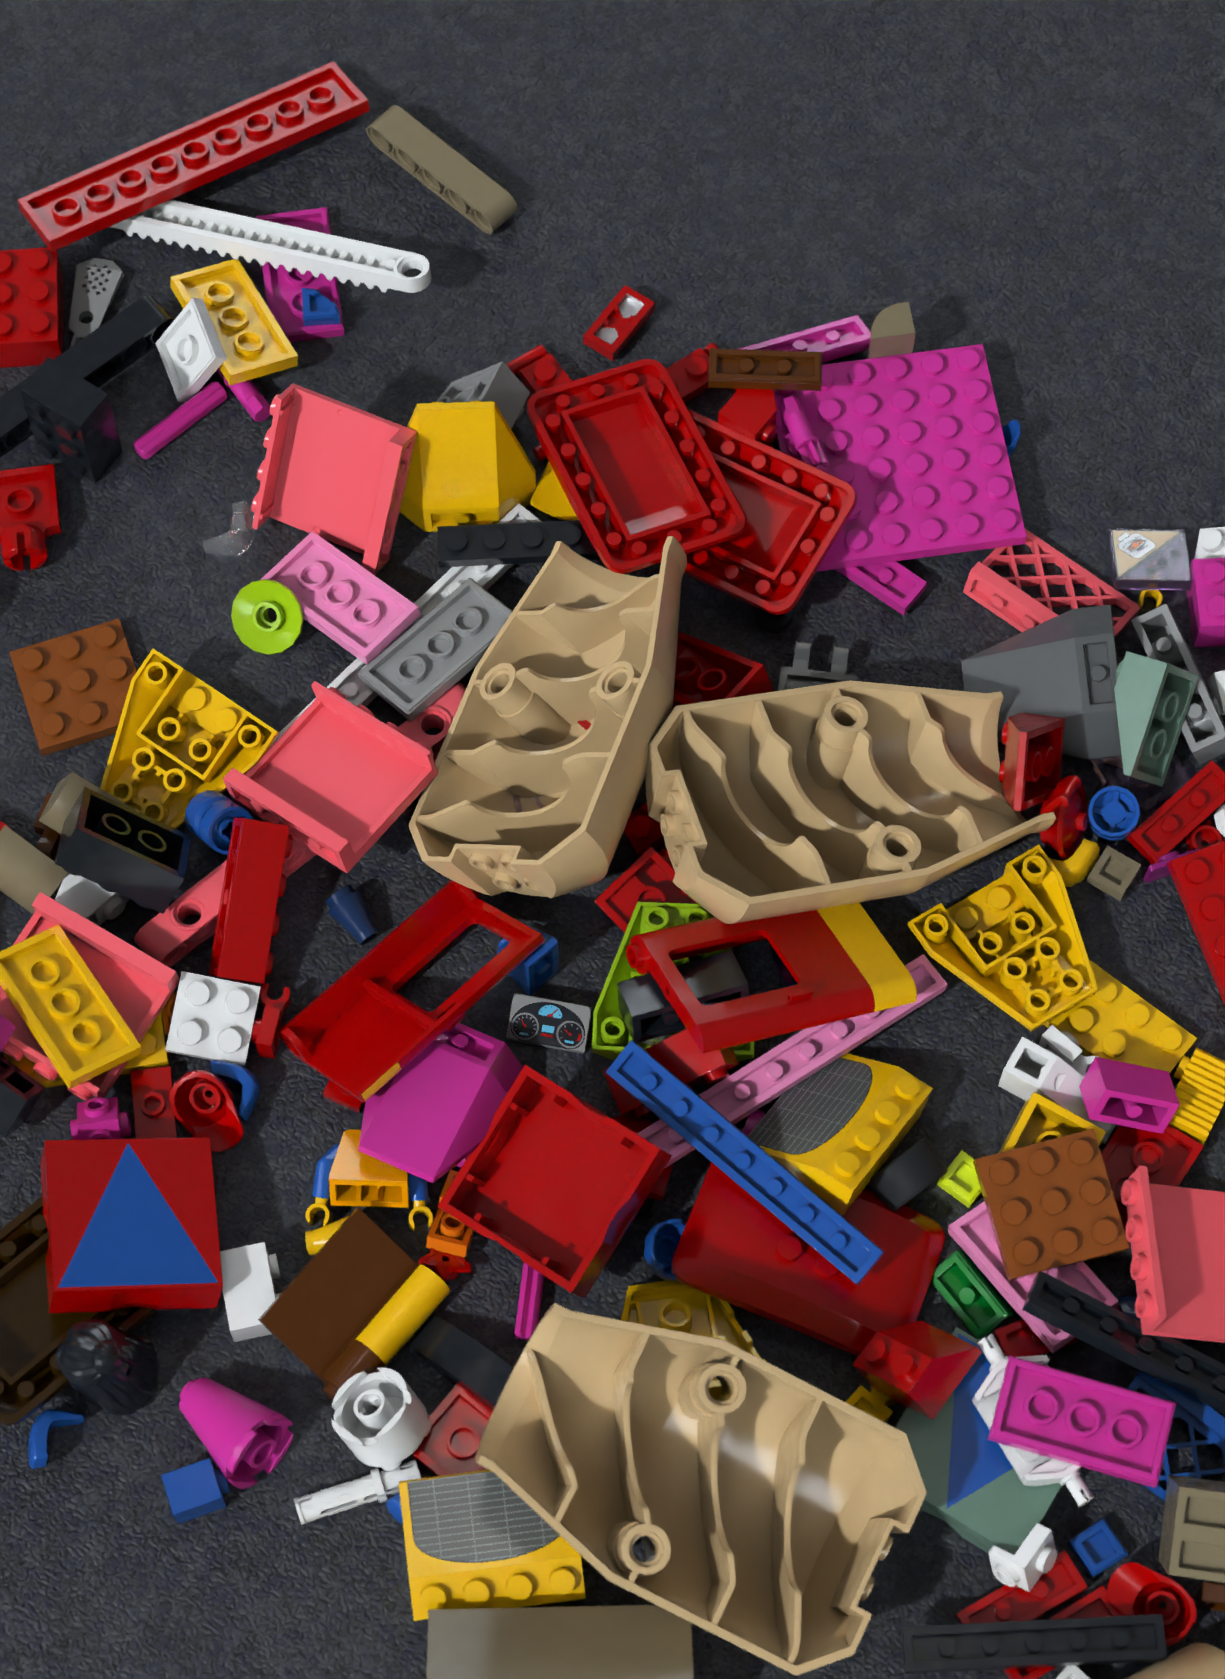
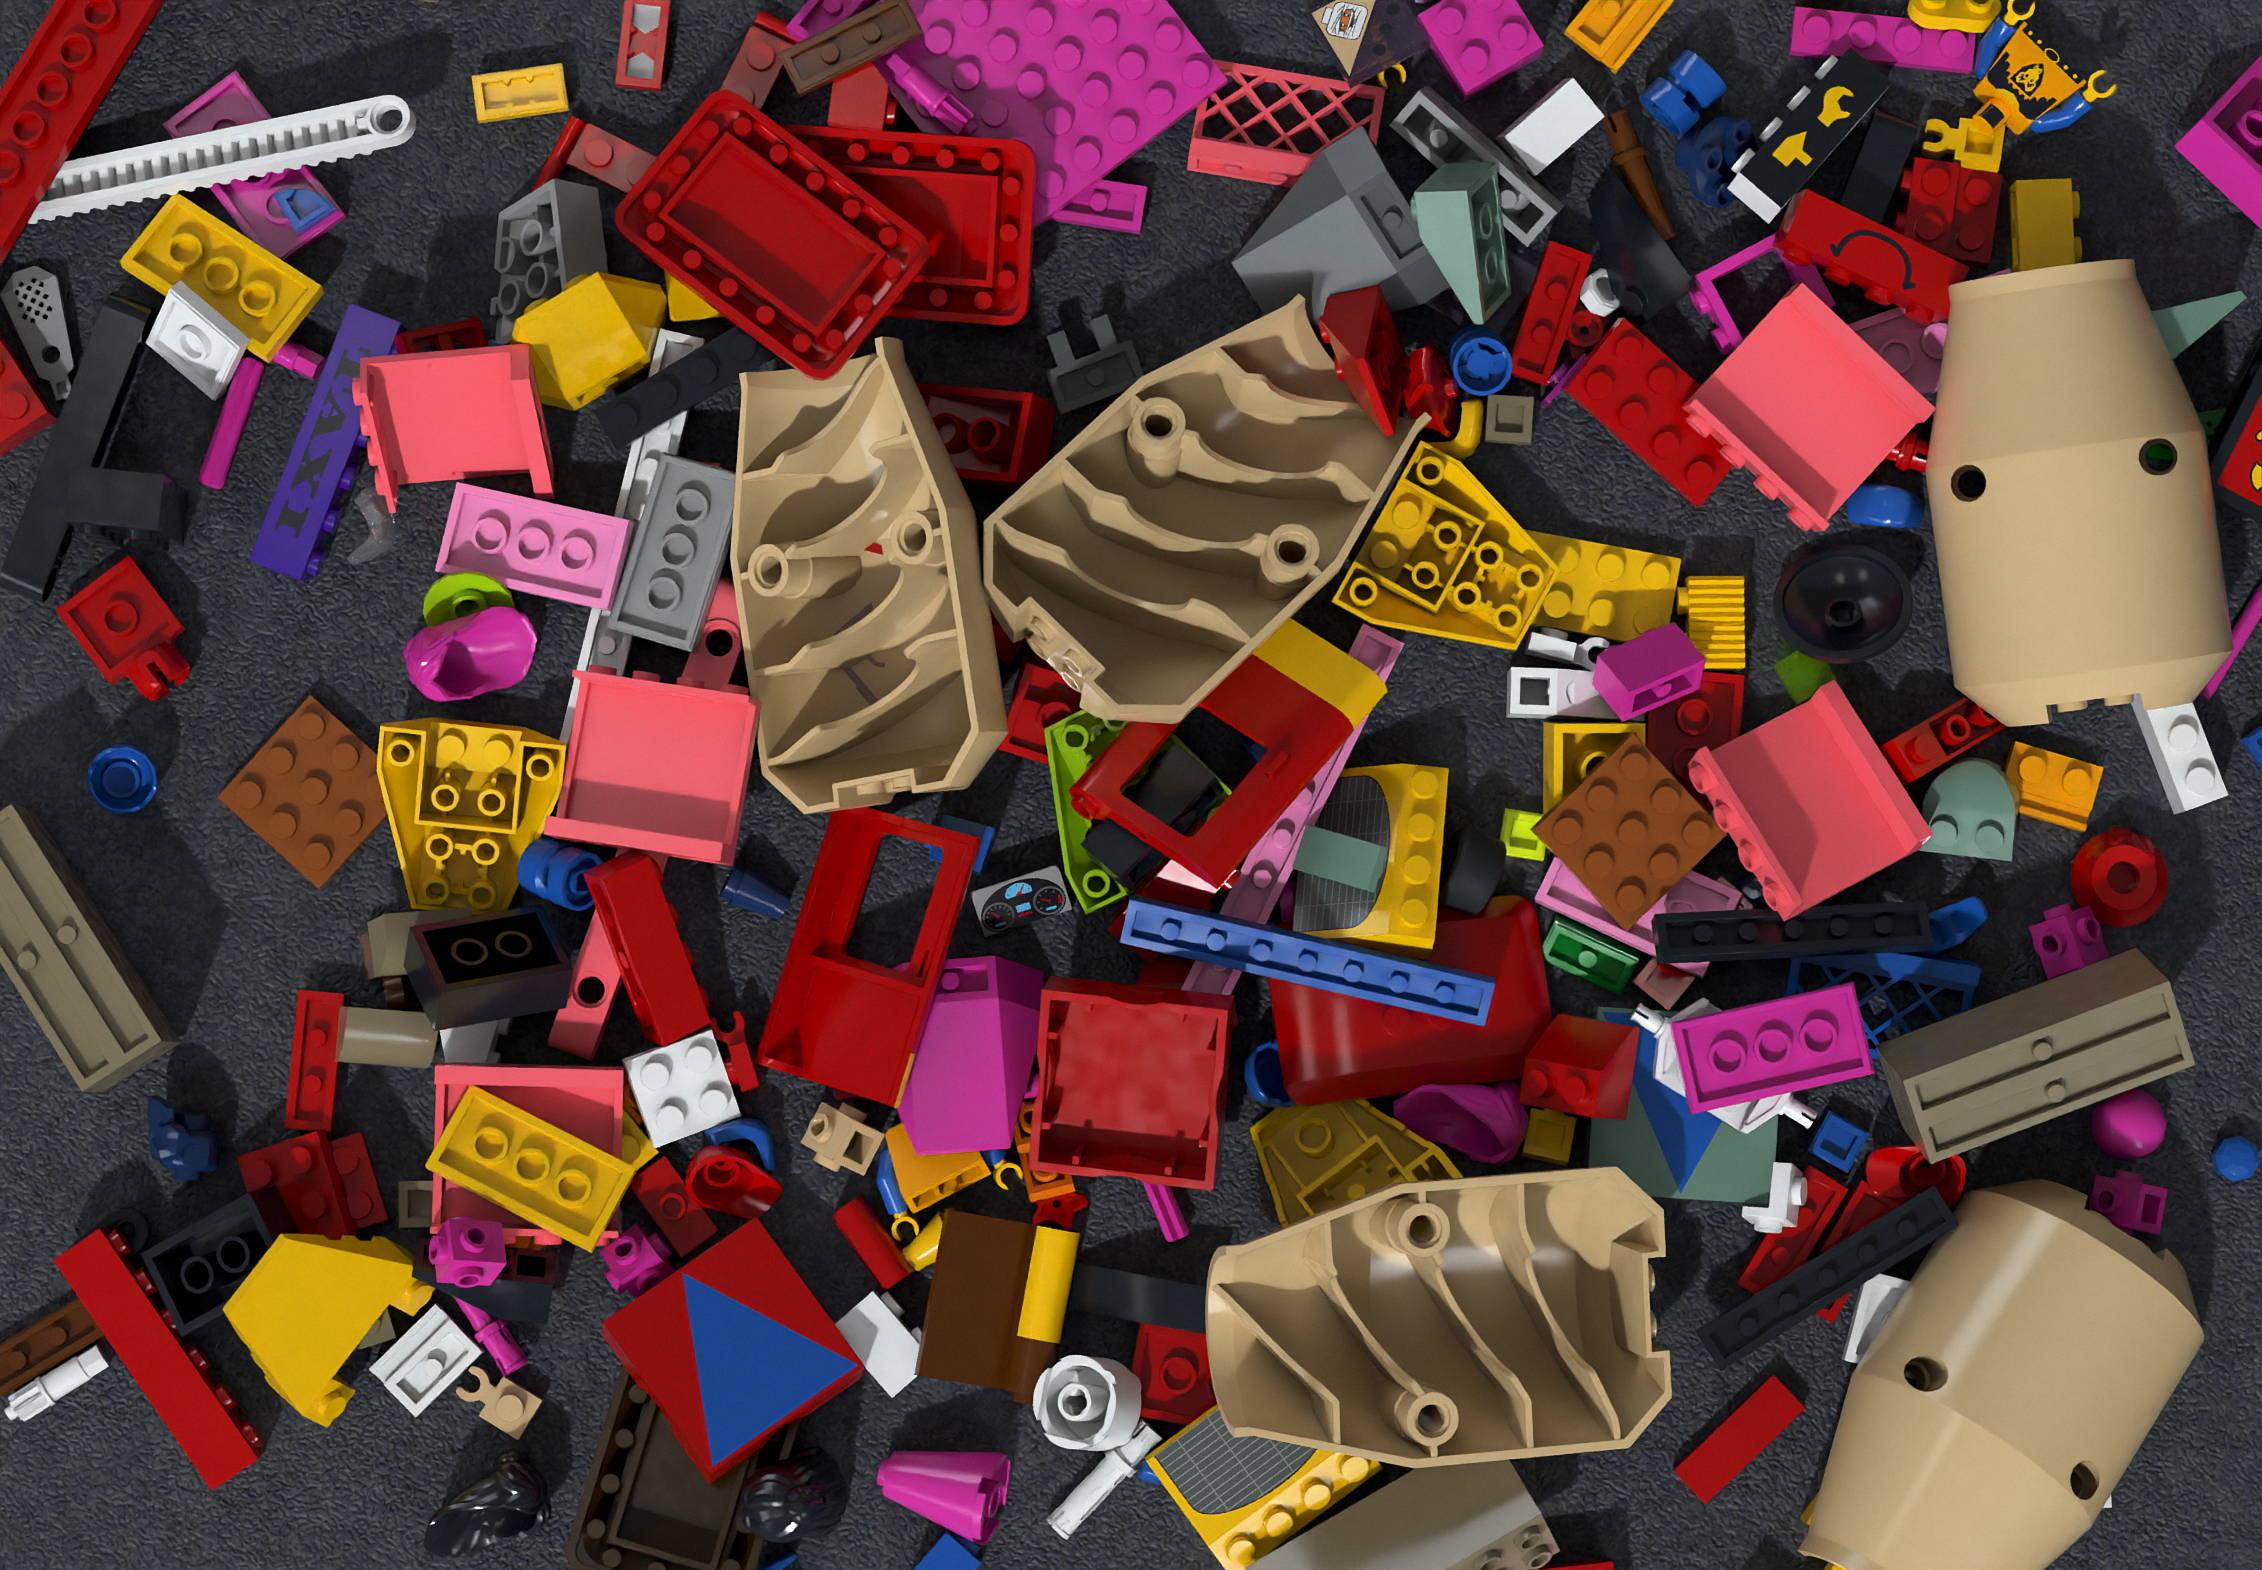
camera: 30 degrees left, 20 degrees up
(208, 482) = (323, 453): none -> dark purple brick
(251, 645) = (471, 654): none -> dark pink hair
(286, 1212) = (872, 1242): none -> red brick
(310, 1119) = (842, 1138): none -> tan brick
(513, 313) = (520, 93): none -> yellow plate
(804, 1353) = (1467, 1117): none -> dark pink hair
(813, 1100) = (1340, 858): none -> sand green slope

